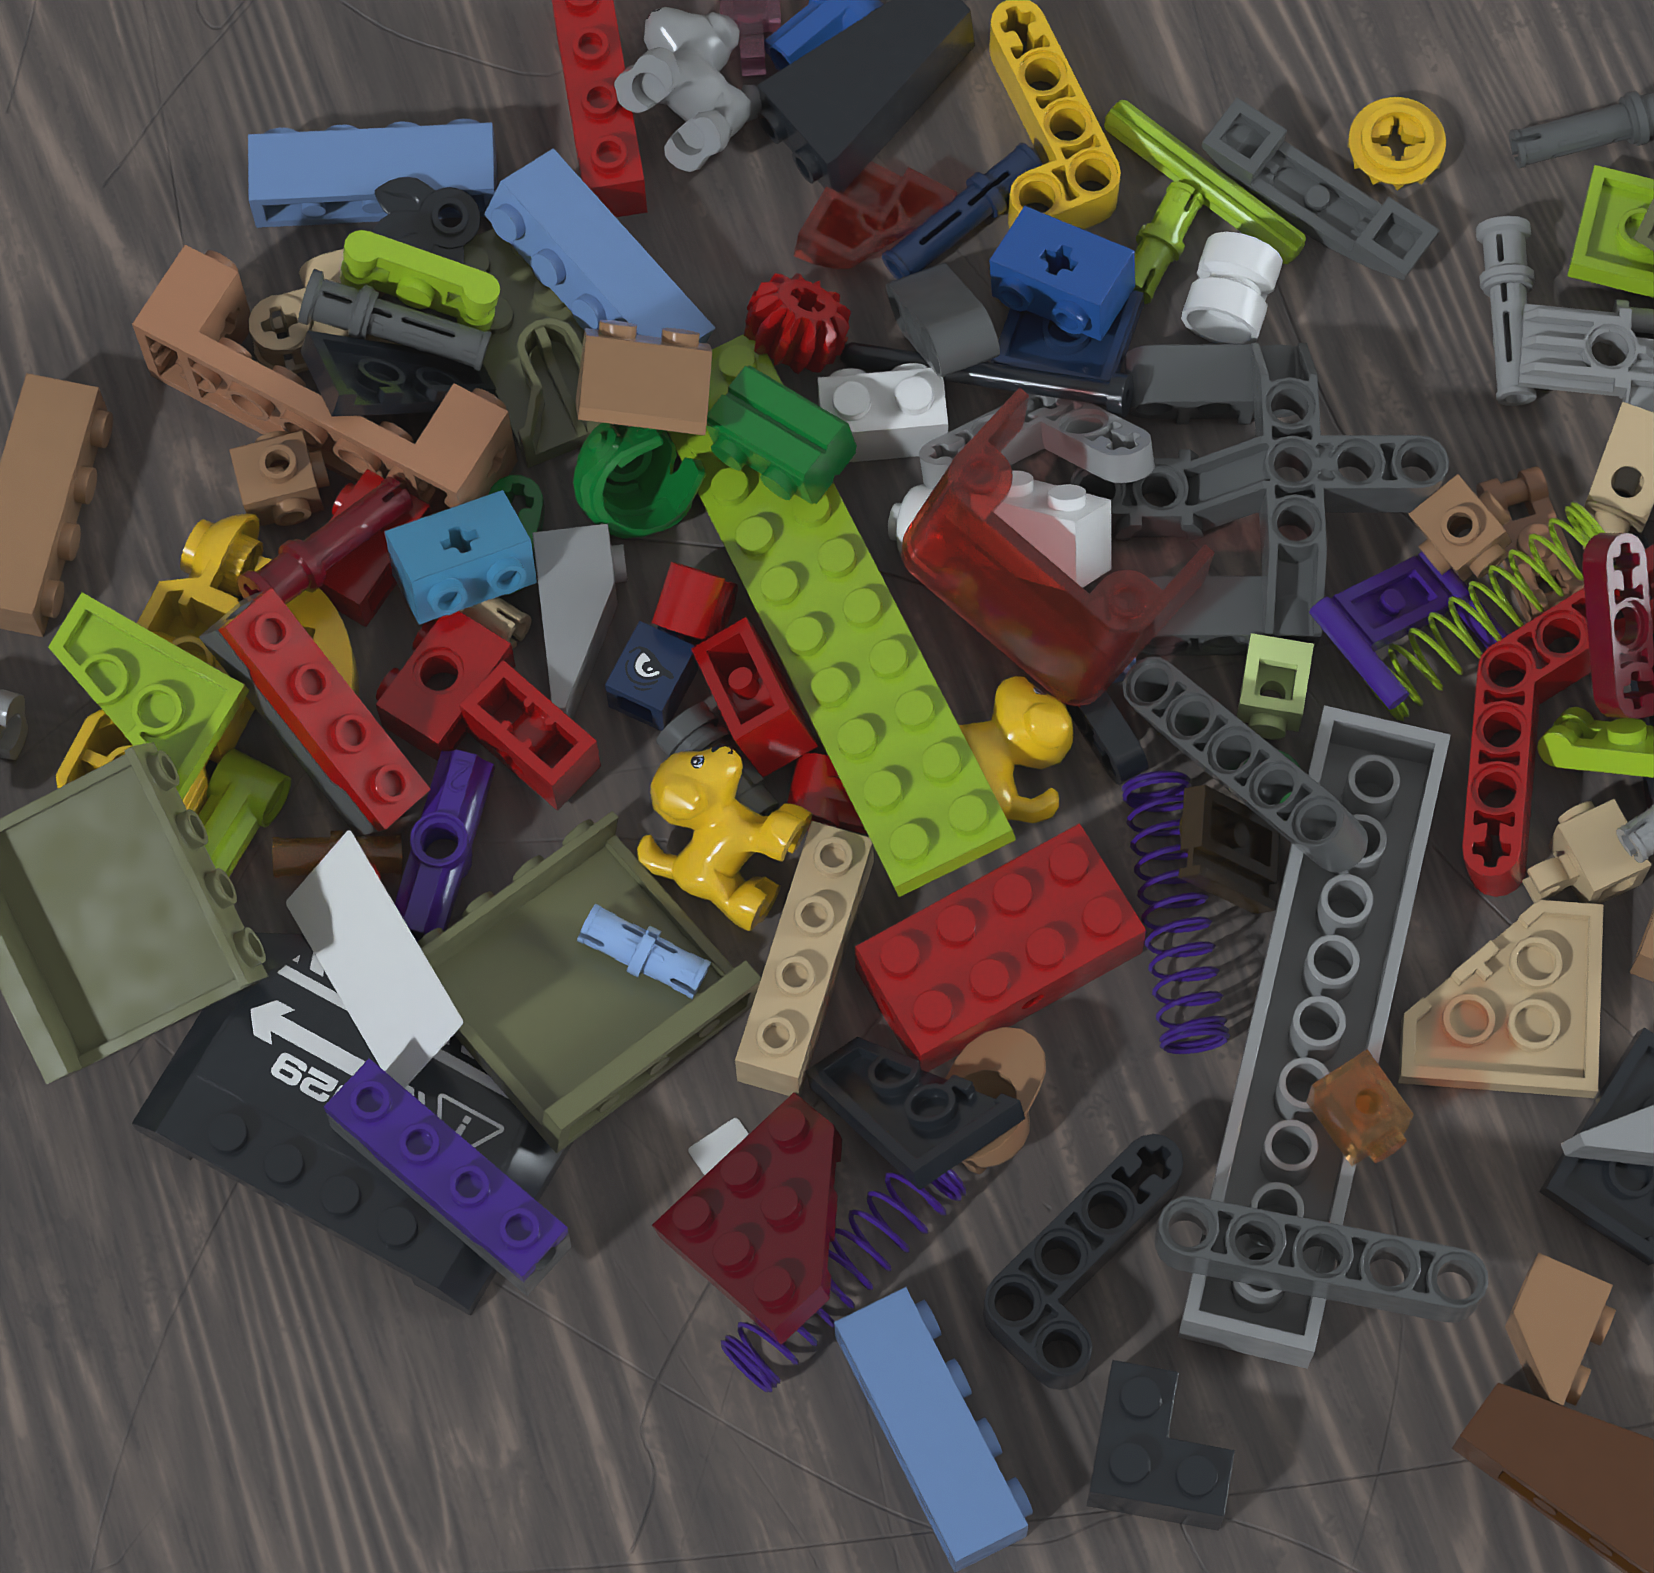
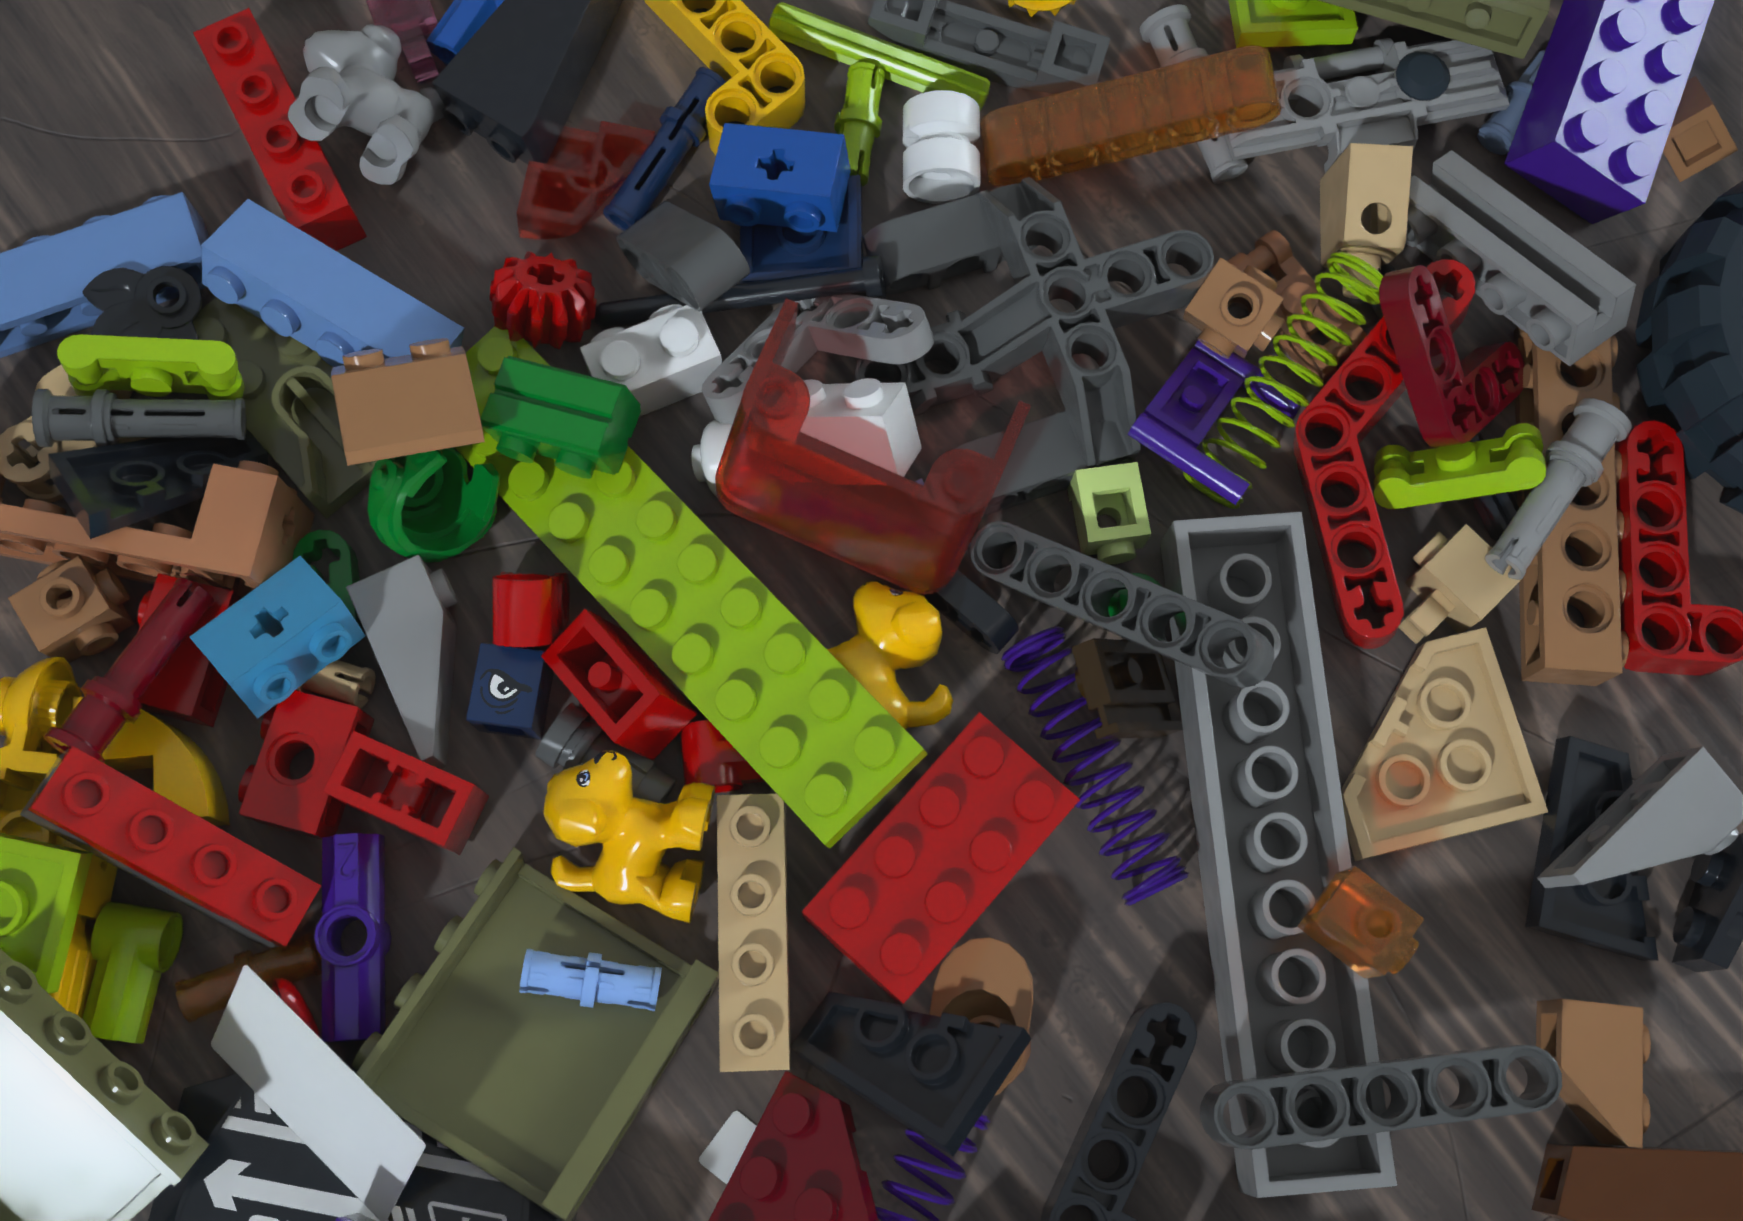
camera: 25 degrees left, 5 degrees up
(1425, 313) = (1130, 116): none -> clear orange beam

